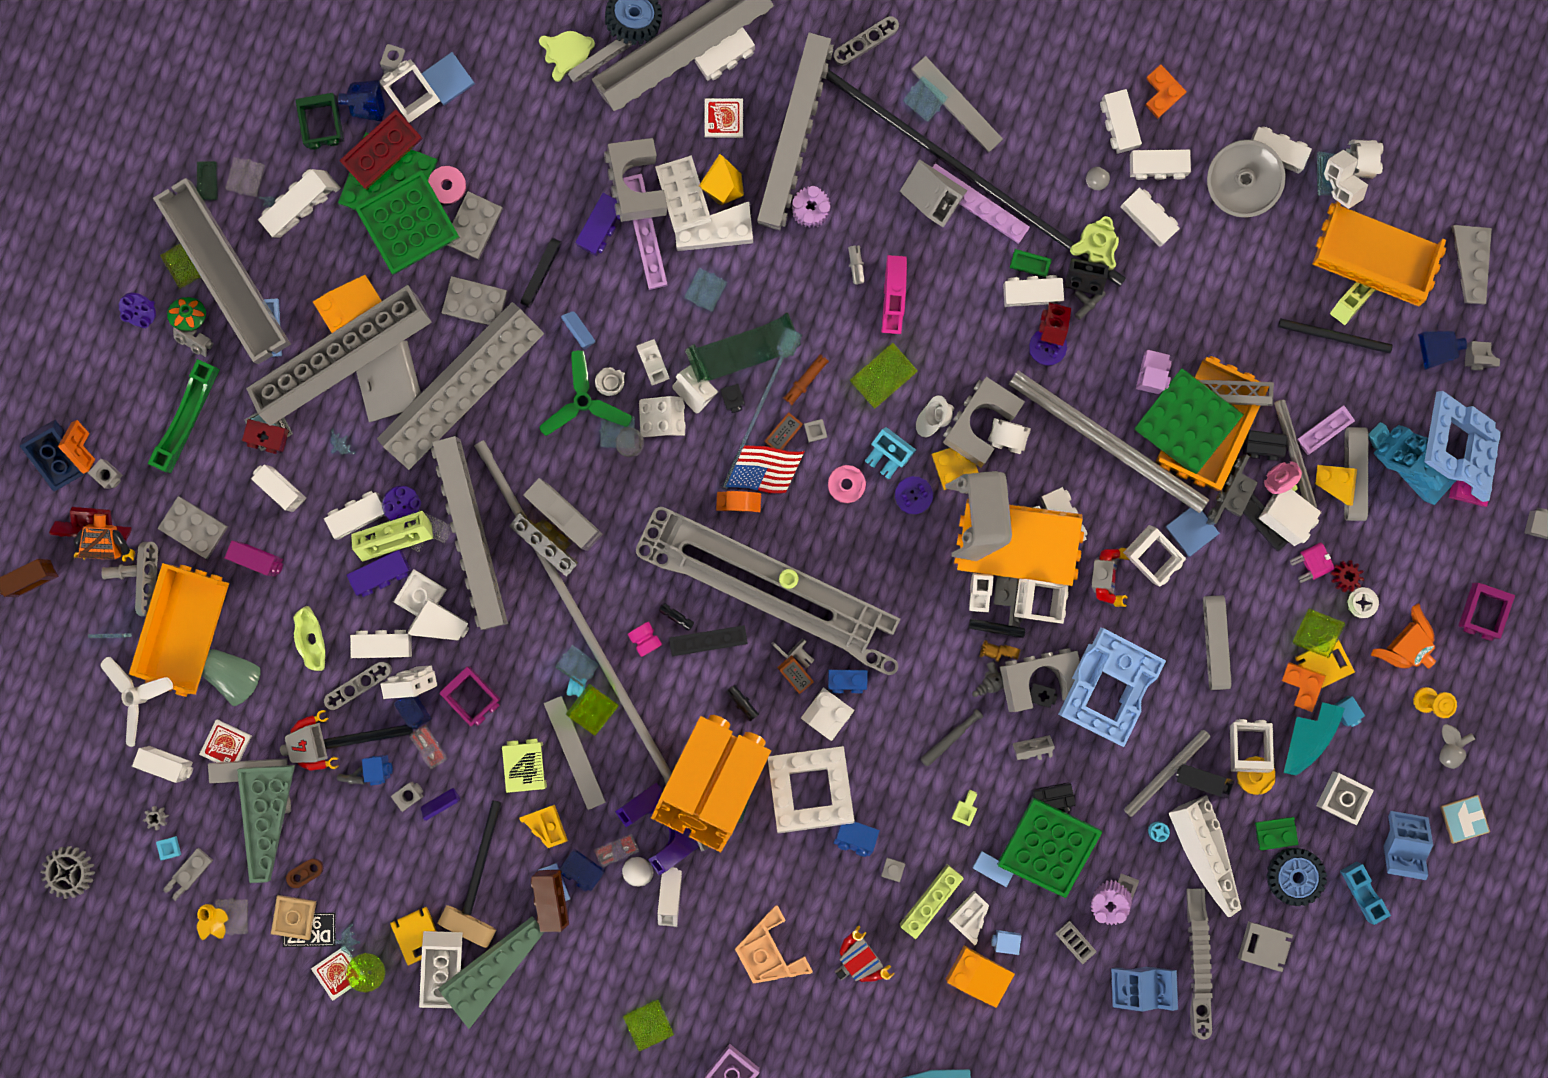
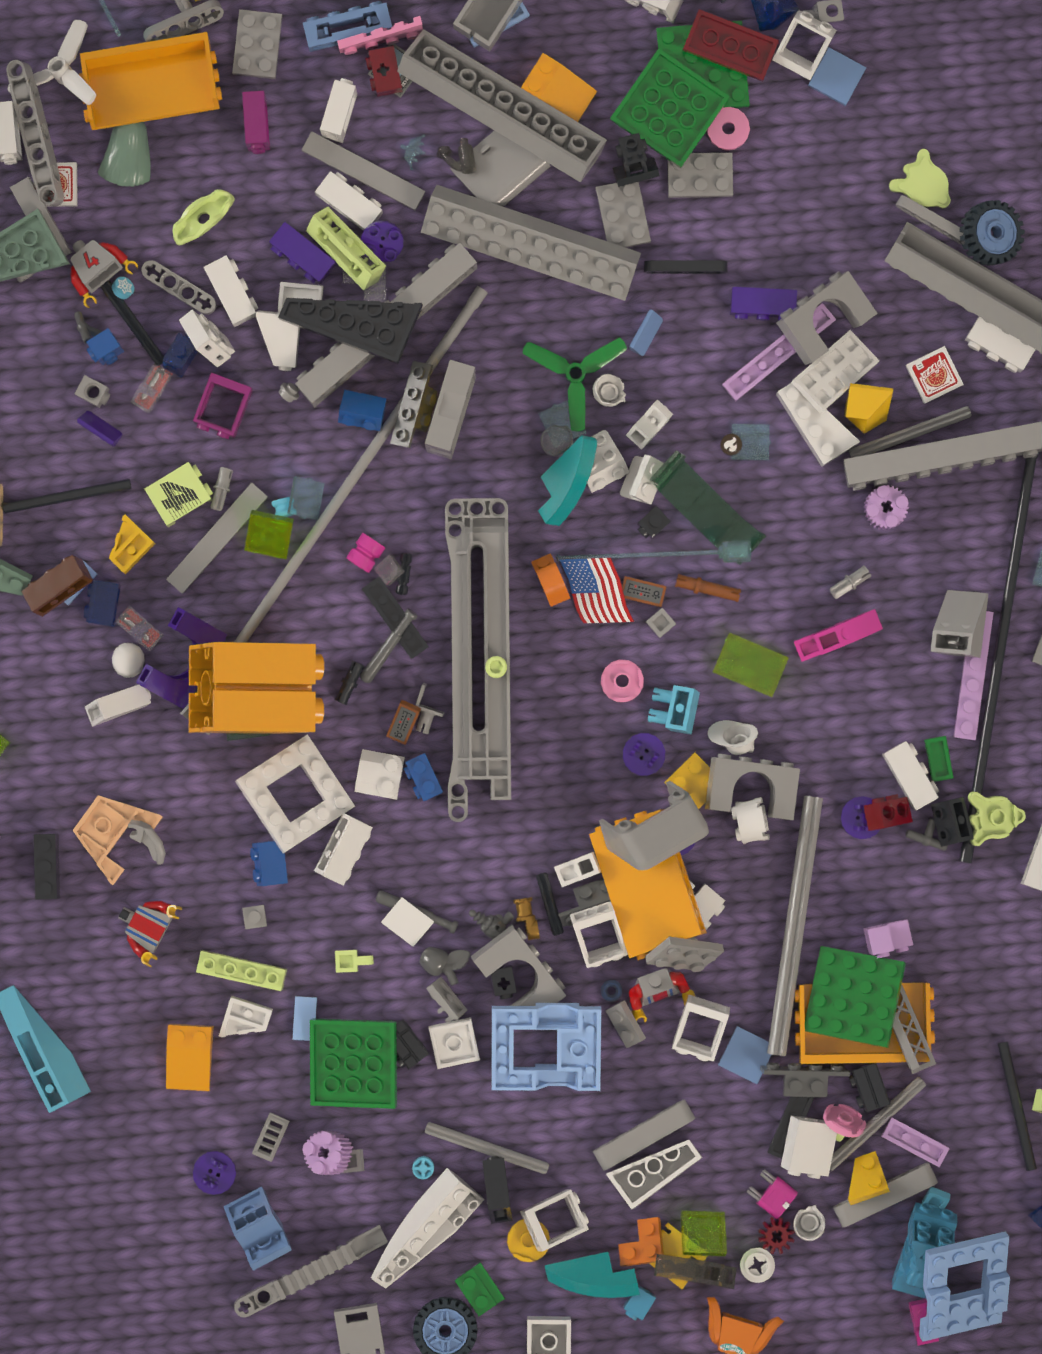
camera: 65 degrees right, 0 degrees up
(175, 741) = (35, 133): none -> light grey beam
(220, 421) = (338, 19): none -> medium blue brick
(234, 425) = (381, 35): none -> bright pink wing
(335, 731) = (123, 287): none -> medium azure tile
(337, 492) = (363, 171): none -> light grey tile
(364, 403) = (466, 155): none -> clear smoke plant
(434, 270) = (633, 156): none -> black tile
(459, 553) = (364, 325): none -> black wing
(485, 637) = (289, 392): none -> light grey plate
(529, 586) = (362, 410): none -> blue brick
(536, 729) = (221, 488): none -> light grey axle
(665, 448) = (567, 480): none -> teal slope
(667, 627) = (389, 570): none -> clear tile
(700, 305) = (731, 444): none -> dark brown tile
(733, 666) = (385, 650): none -> dark grey piece
(760, 159) = (911, 432): none -> light grey axle
(772, 1018) = (46, 866): none -> black brick
(788, 924) = (150, 838): none -> light grey piece
(874, 772) = (343, 849): none -> white brick
(956, 749) = (407, 921): none -> white sticker
(999, 740) = (437, 961): none -> dark grey piece
(1006, 942) = (237, 1066): light blue brick -> none
(1071, 758) = (454, 1043): none -> white tile
(1076, 994) = (210, 1182): none -> dark purple plate
(1090, 540) = (684, 954): none -> light grey plate
(1095, 610) = (616, 995): none -> dark blue plate
(1122, 614) = (625, 1024): none -> light grey plate
(1251, 652) = (647, 1176): none -> white wedge
(1346, 654) = (695, 1271): none -> clear smoke slope
(1351, 545) = (809, 1223): none -> white hair

